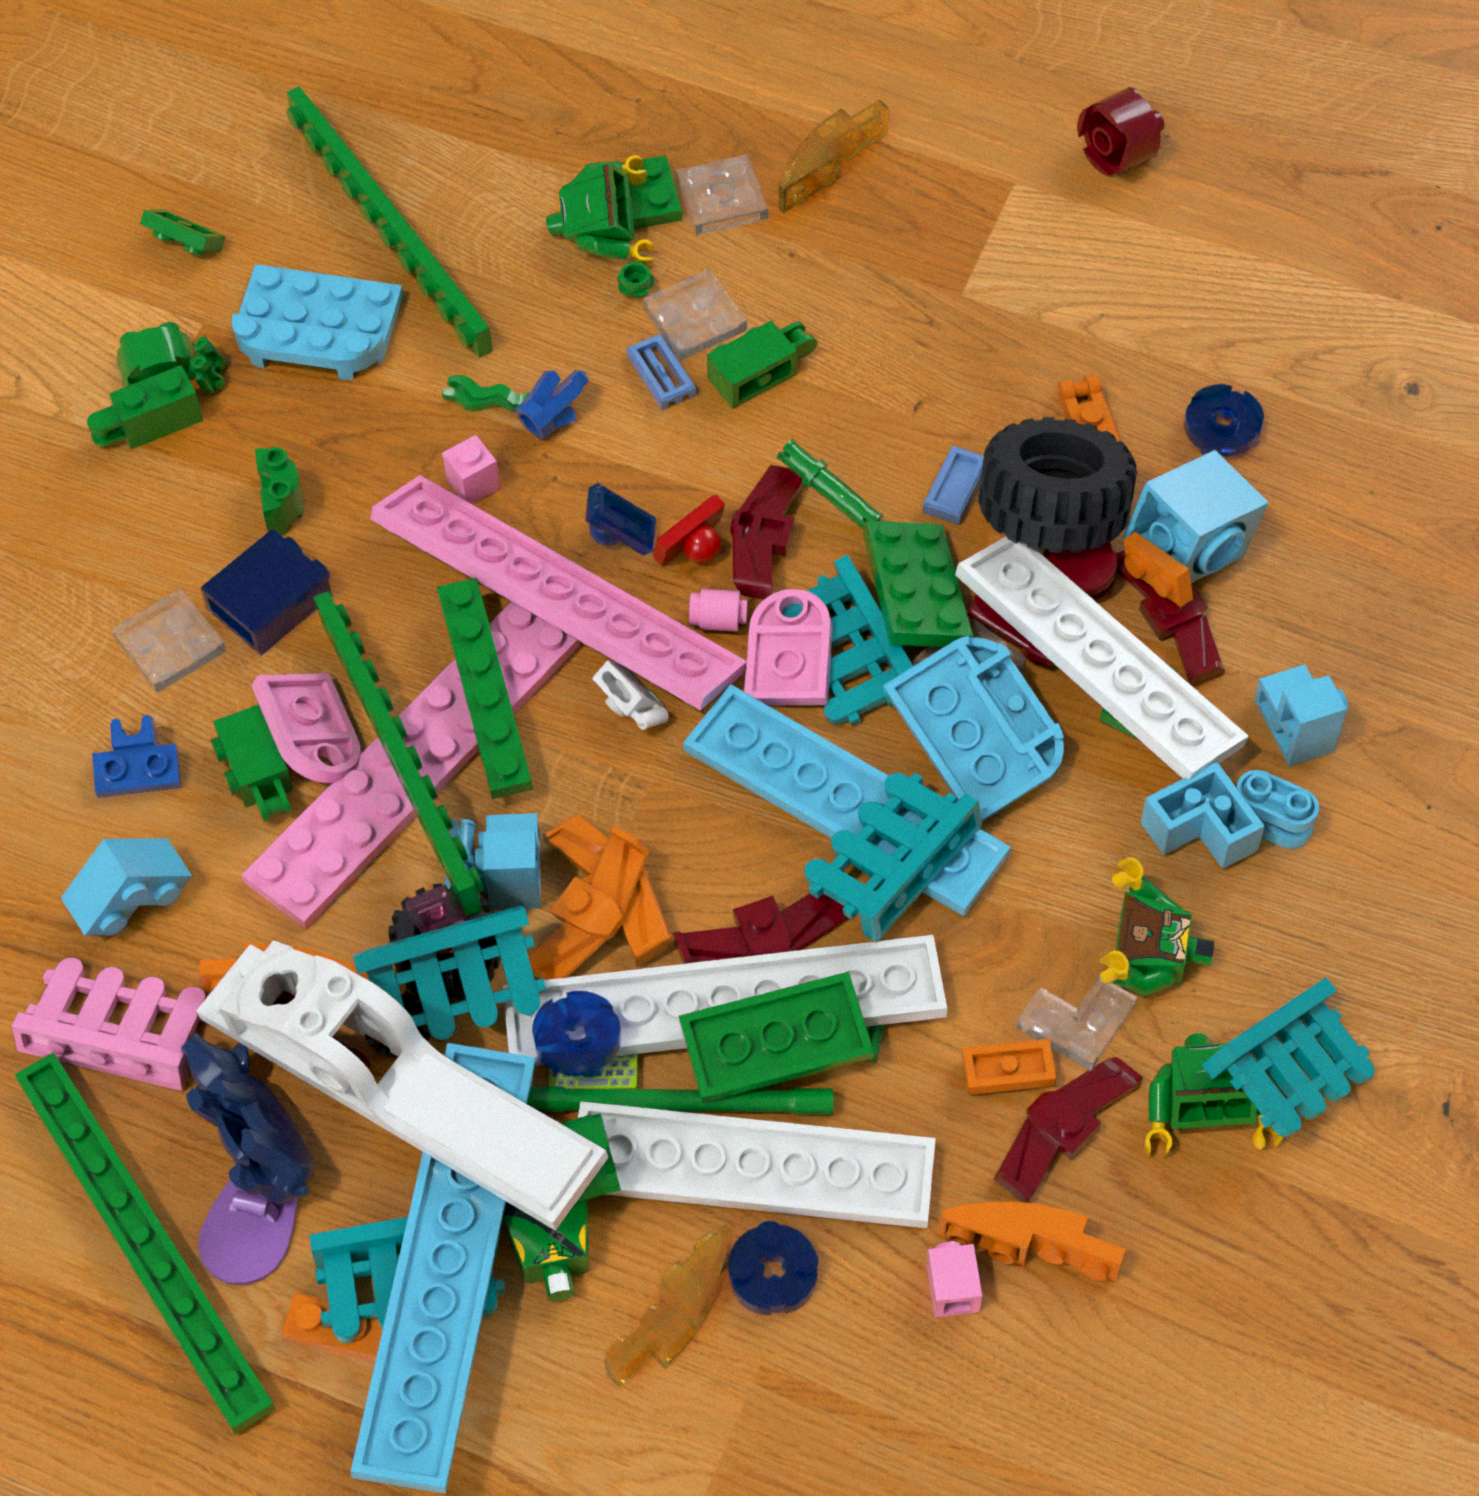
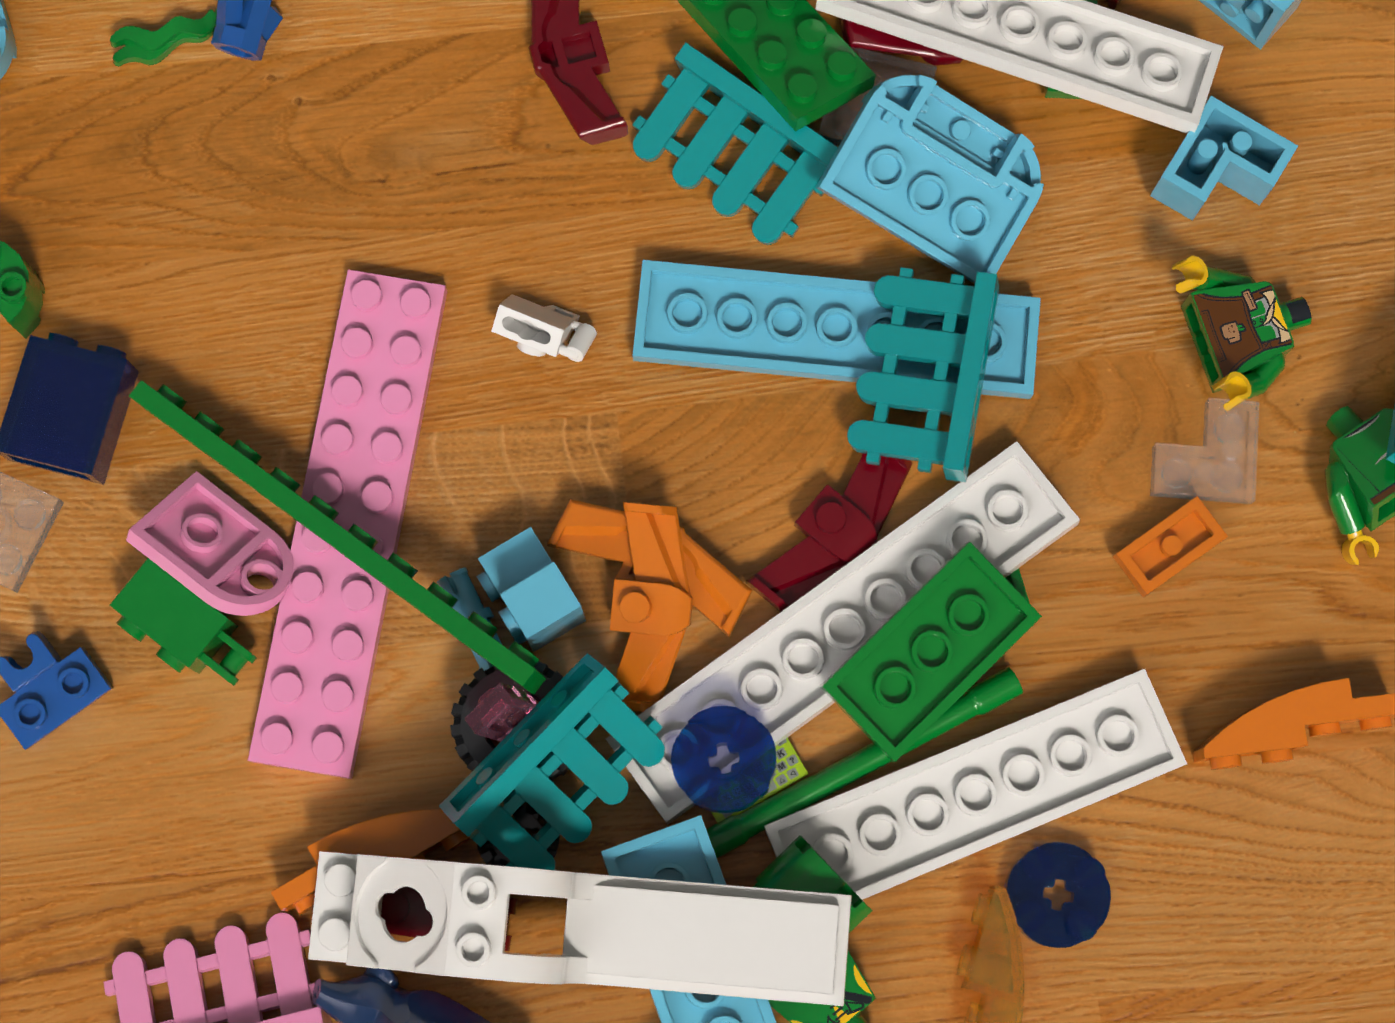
camera: 30 degrees left, 20 degrees up
(120, 879) = (132, 845): medium azure brick -> none
(471, 470) = (207, 144): bright pink brick -> none
(484, 689) = (382, 404): green plate -> none
(559, 591) = (389, 244): bright pink plate -> none
(618, 520) = (410, 123): clear blue tile -> none
(693, 535) = (506, 101): red tile -> none
(717, 610) = (577, 176): bright pink brick -> none
(789, 655) = (683, 188): bright pink tile -> none
(953, 1279) = (1245, 810): bright pink brick -> none
(1062, 1123) = (1252, 579): dark red plate -> none
(1281, 806) = (1291, 107): medium azure brick -> none

